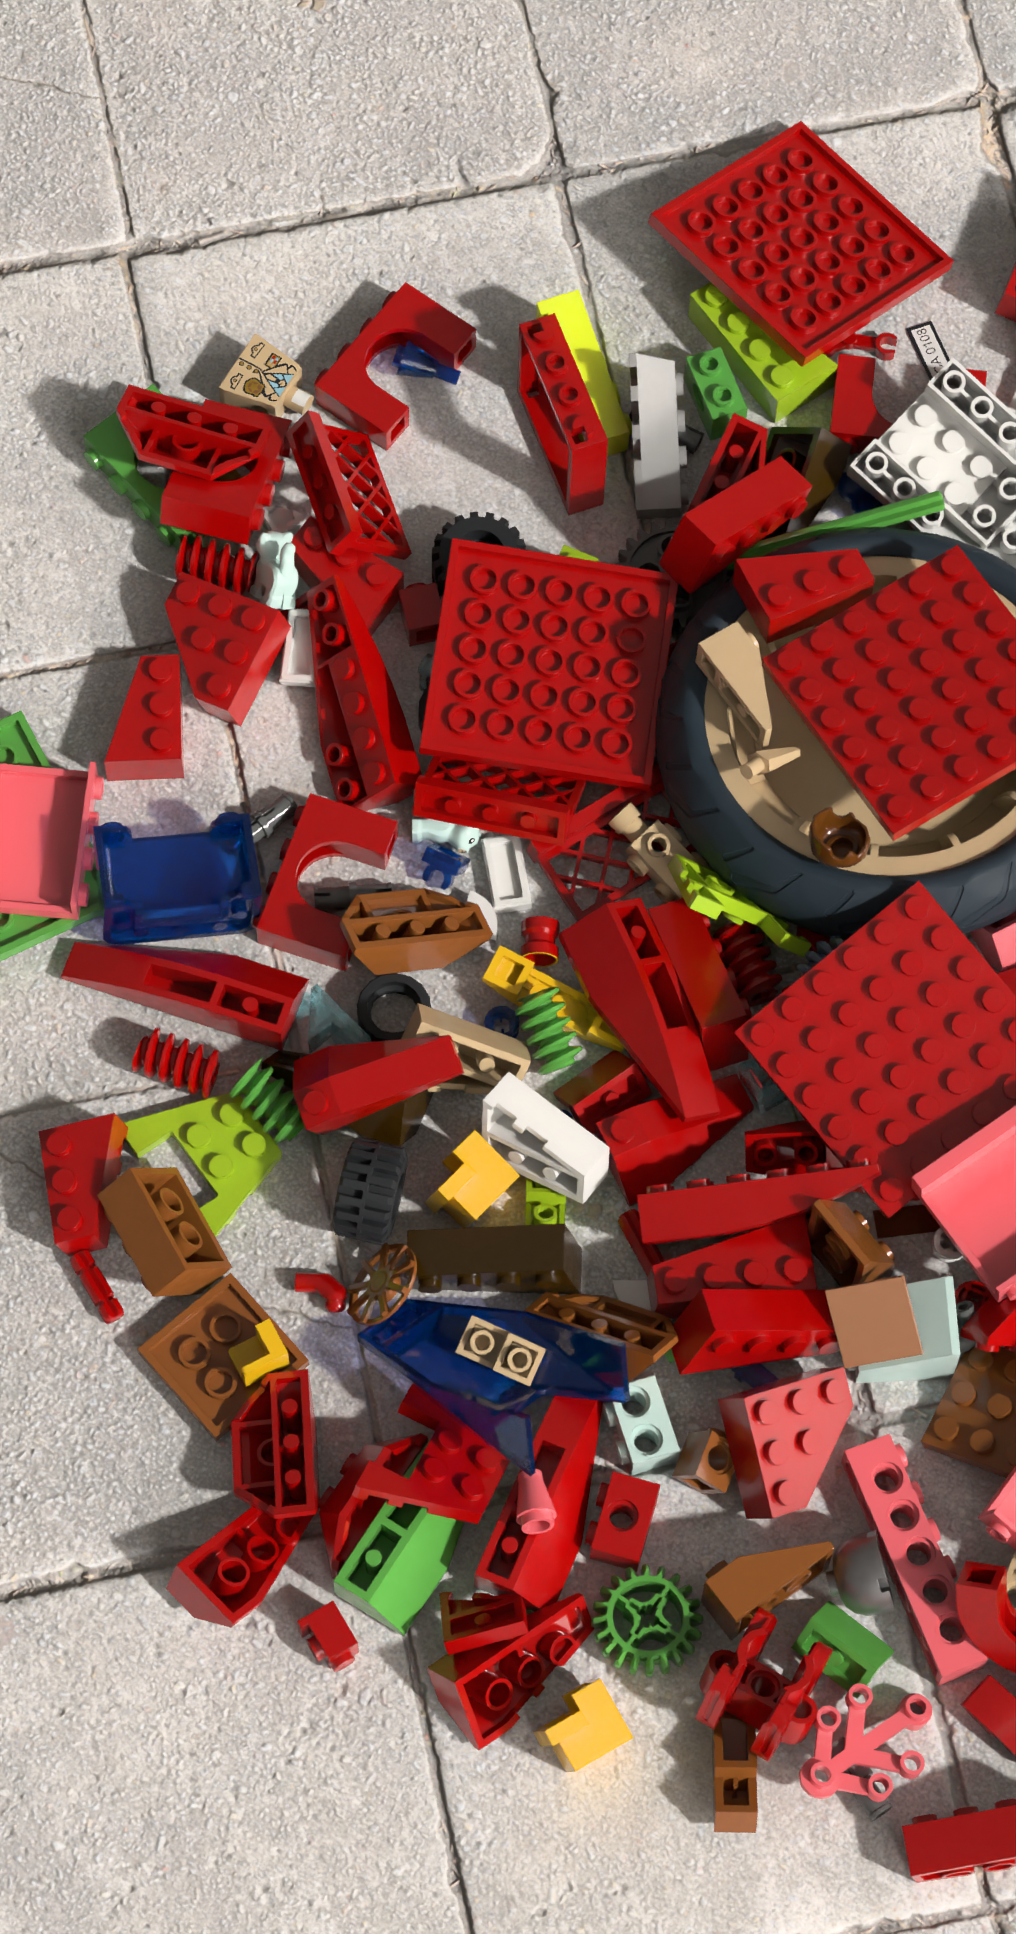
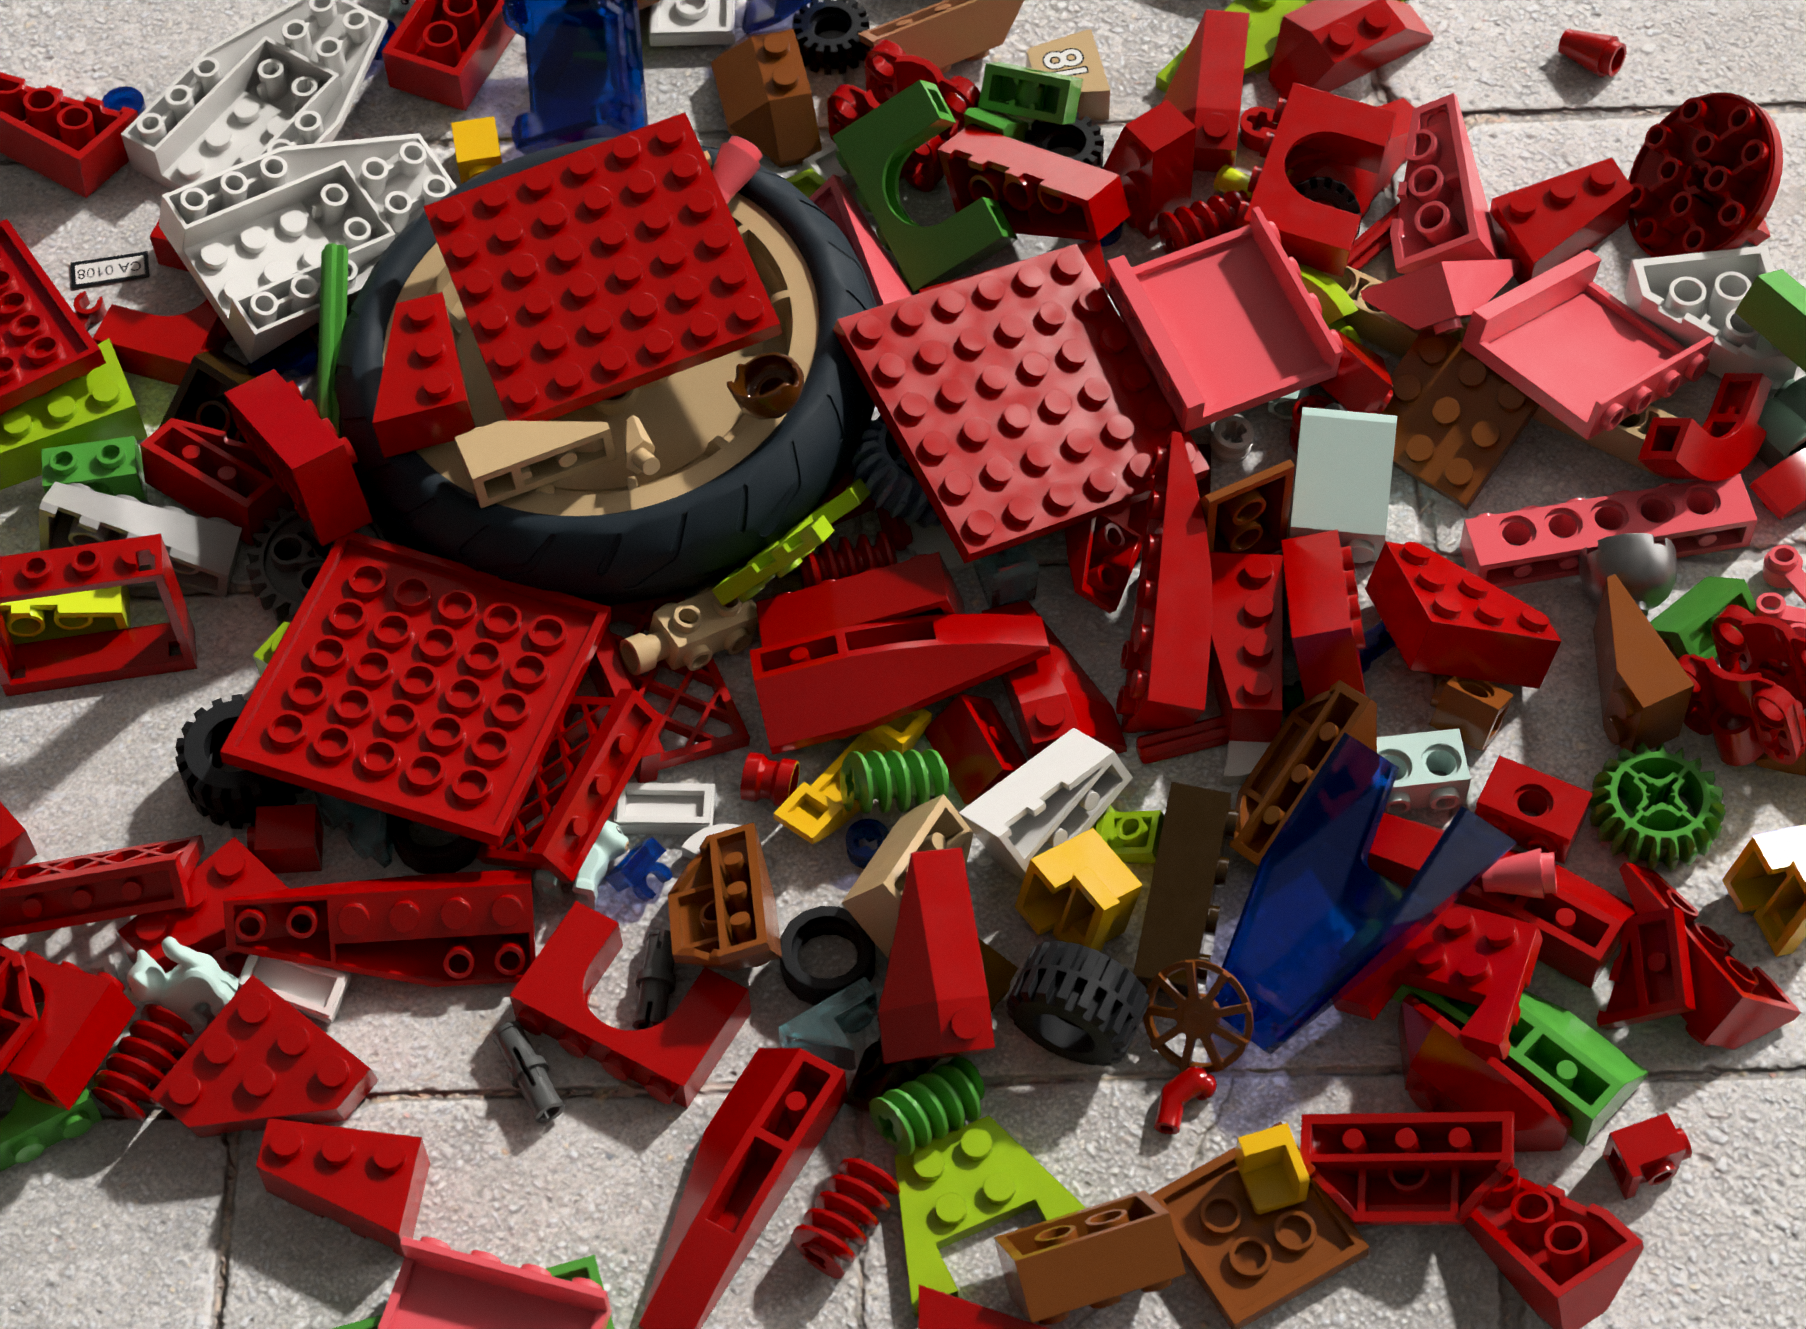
camera: 75 degrees left, 10 degrees down
(177, 882) = (593, 1165): clear blue windscreen -> none
(500, 1350) = (1305, 898): tan slope -> none
(874, 1321) = (1342, 493): nougat piece -> none

